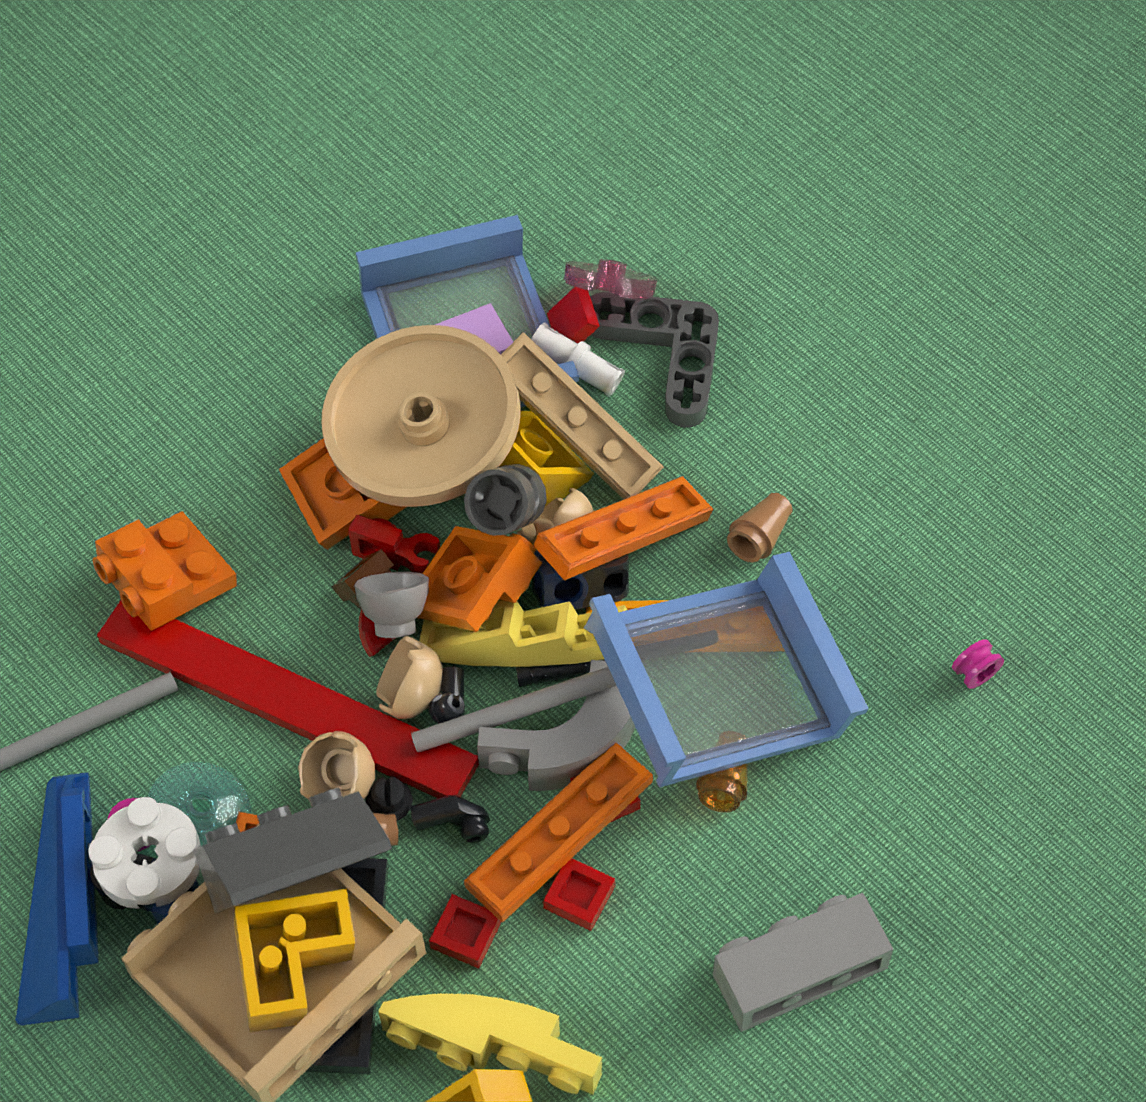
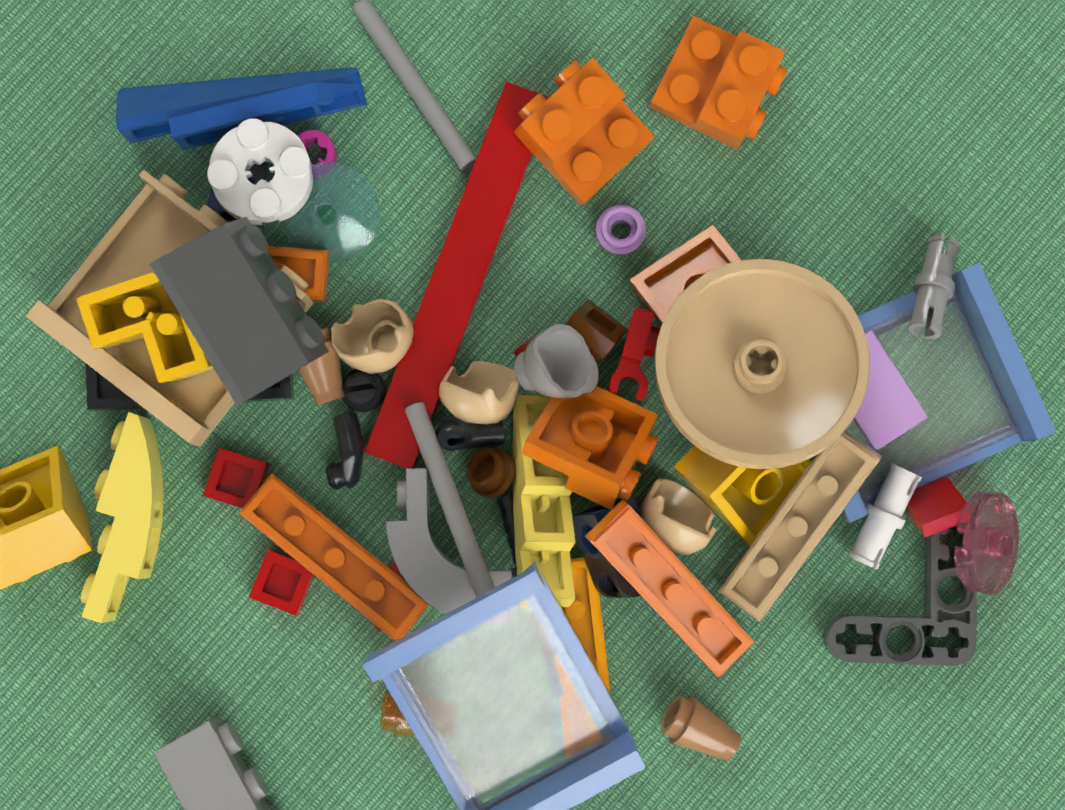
camera: 80 degrees right, 25 degrees up
(140, 453) = (719, 82): none -> orange plate
(265, 539) = (624, 215): none -> lavender plate
(371, 296) = (934, 287): none -> light grey pin
(491, 681) = (490, 472): none -> reddish brown plate
(505, 499) = (668, 465): dark grey wheel -> none

